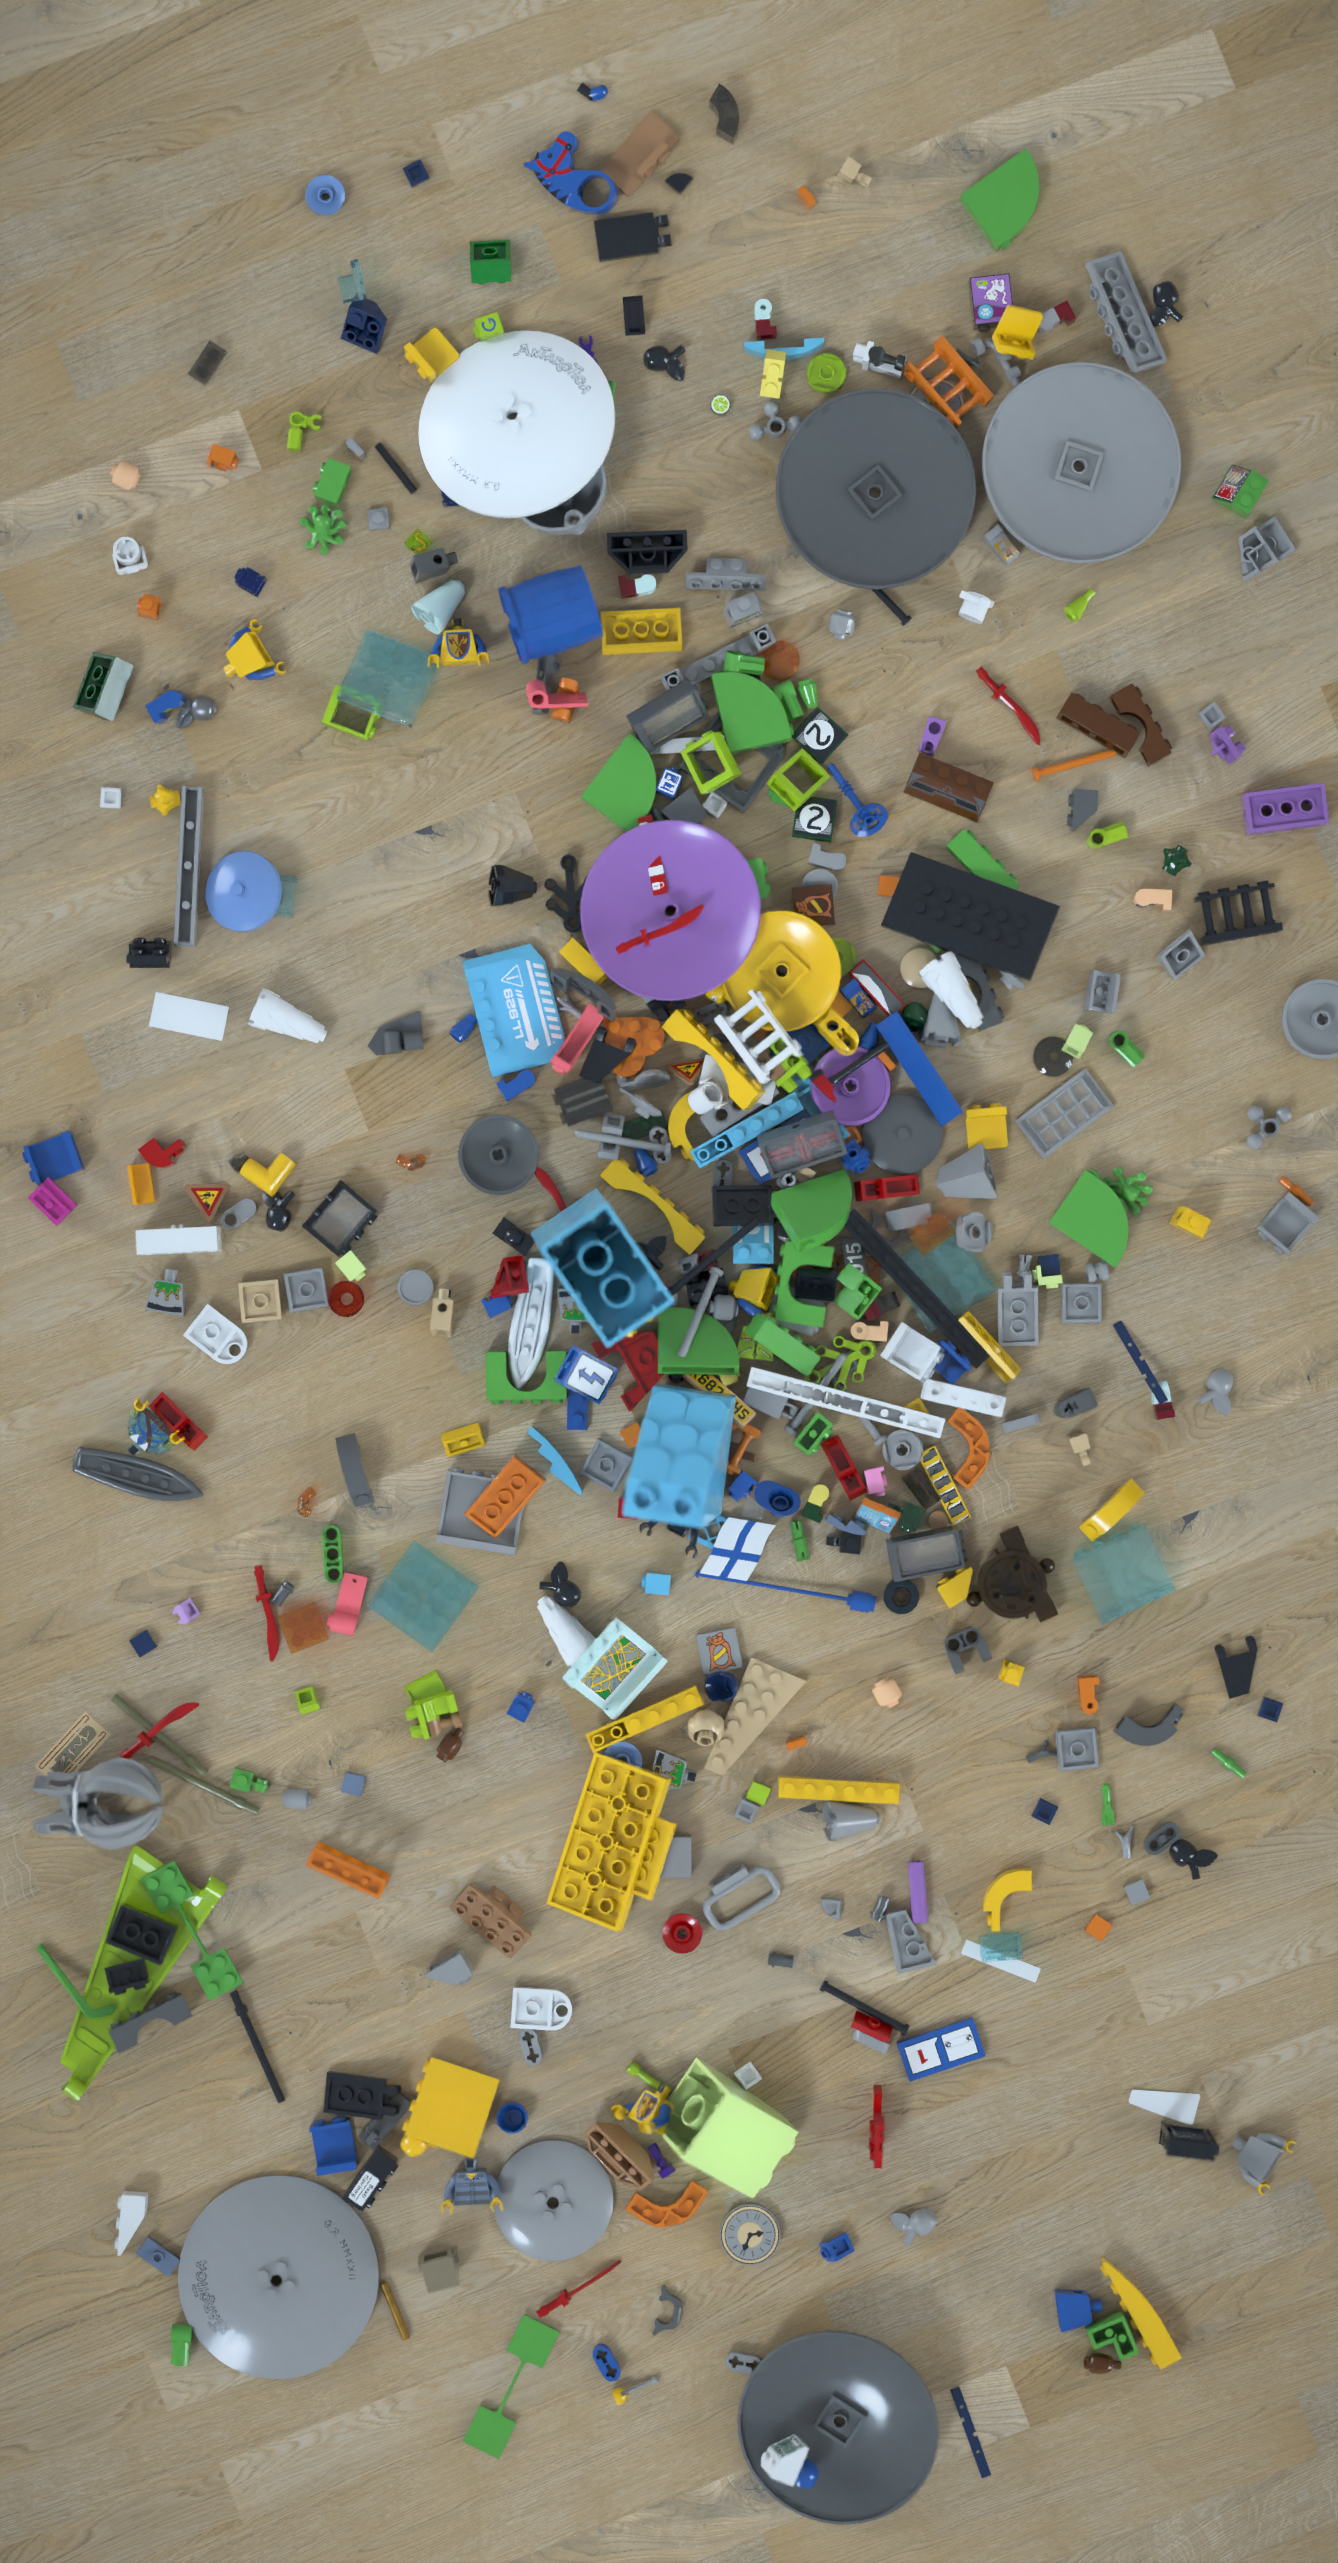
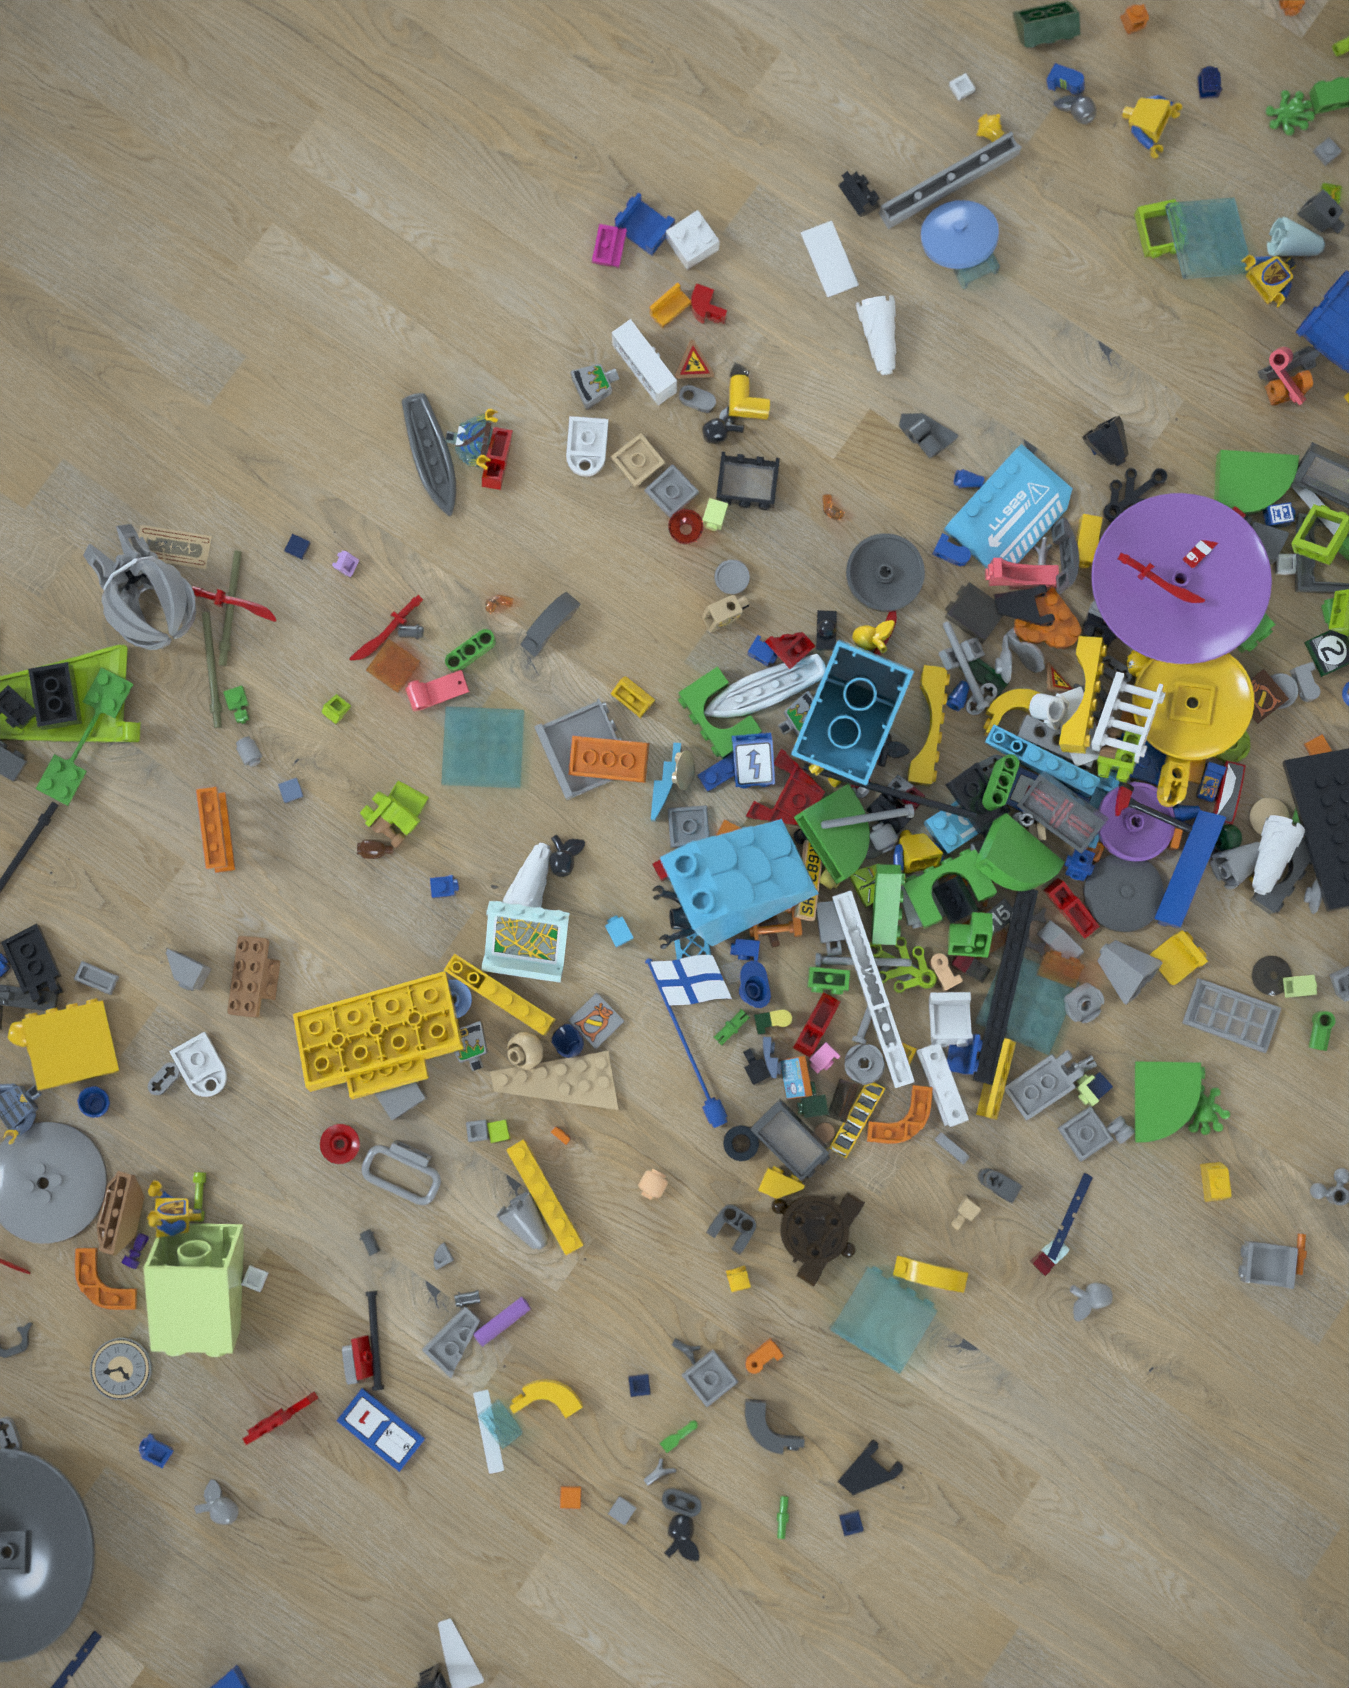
camera: 55 degrees right, 5 degrees down
(95, 1126) = (692, 240): none -> white brick
(406, 2050) = (96, 978): none -> light grey tile
(546, 1204) = (870, 637): none -> yellow piece
(556, 1439) = (684, 770): none -> tan dish
(743, 1187) = (1007, 776): none -> bright green beam

